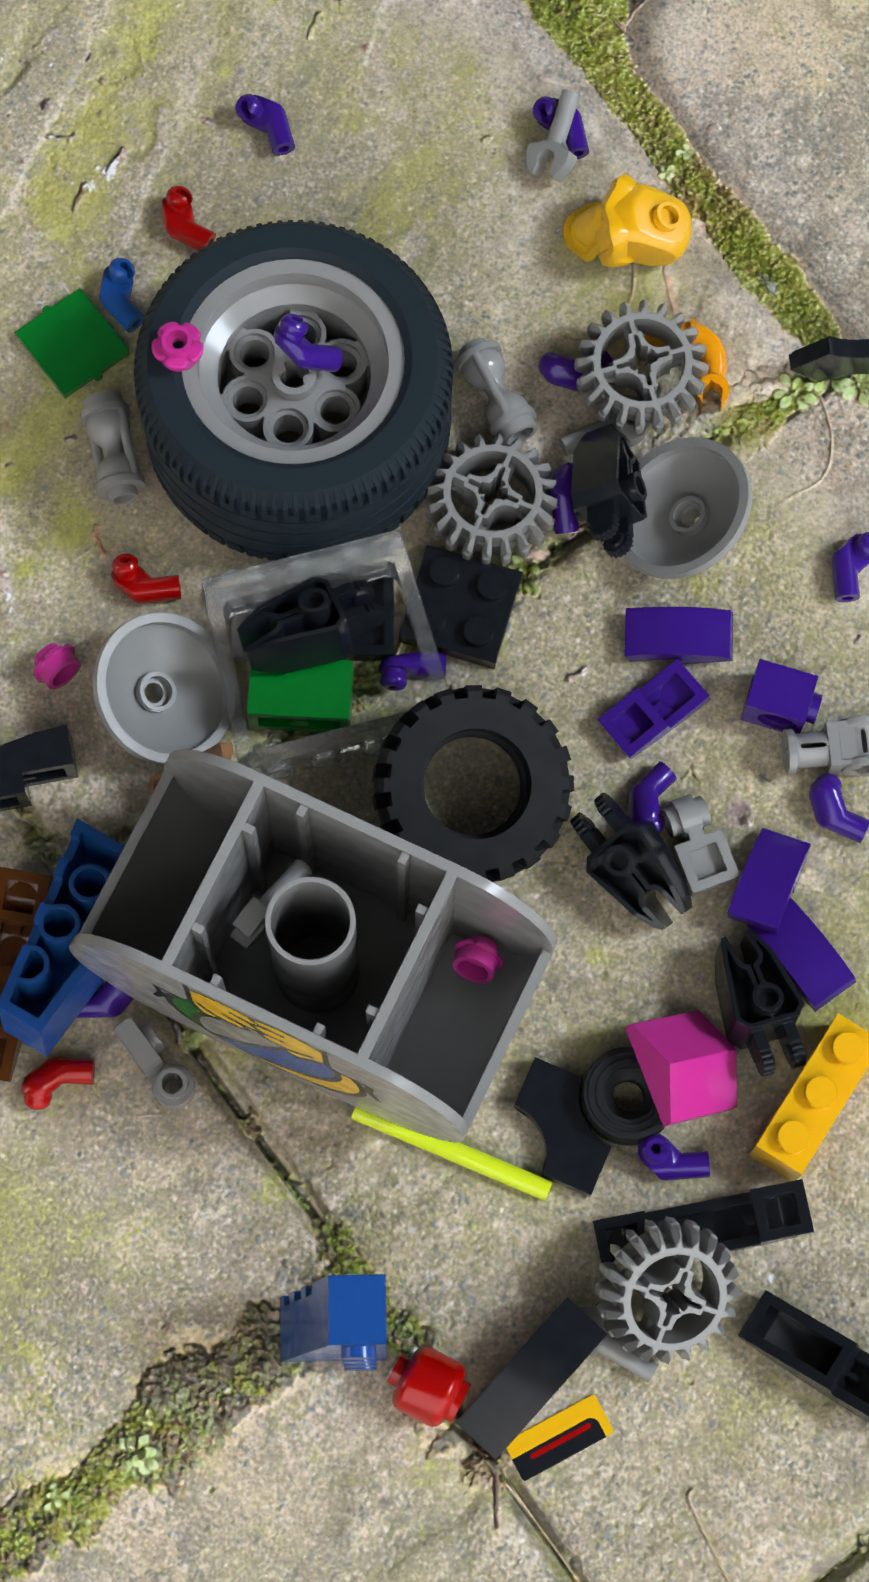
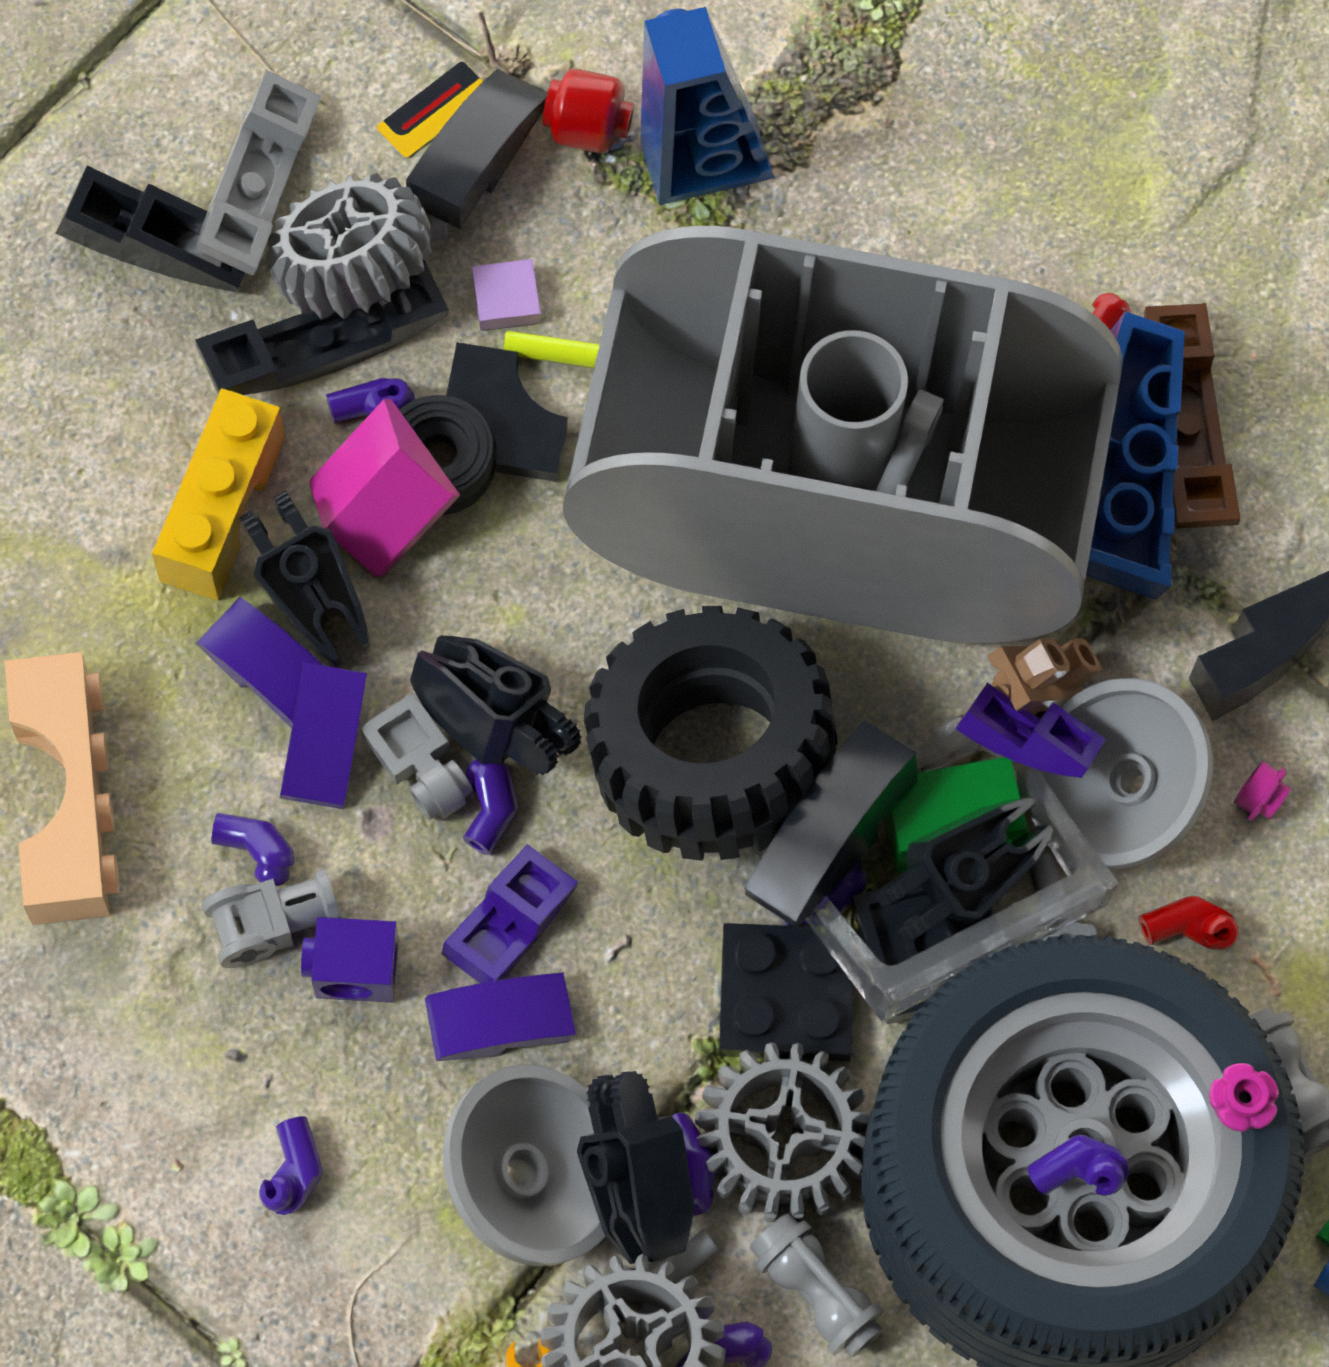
camera: 165 degrees right, 5 degrees down
(215, 716) = (1050, 744): none -> dark purple slope
(401, 684) = (833, 823): none -> black slope
(538, 1234) = (506, 294): none -> lavender tile
(735, 1385) = (257, 173): none -> light grey slope

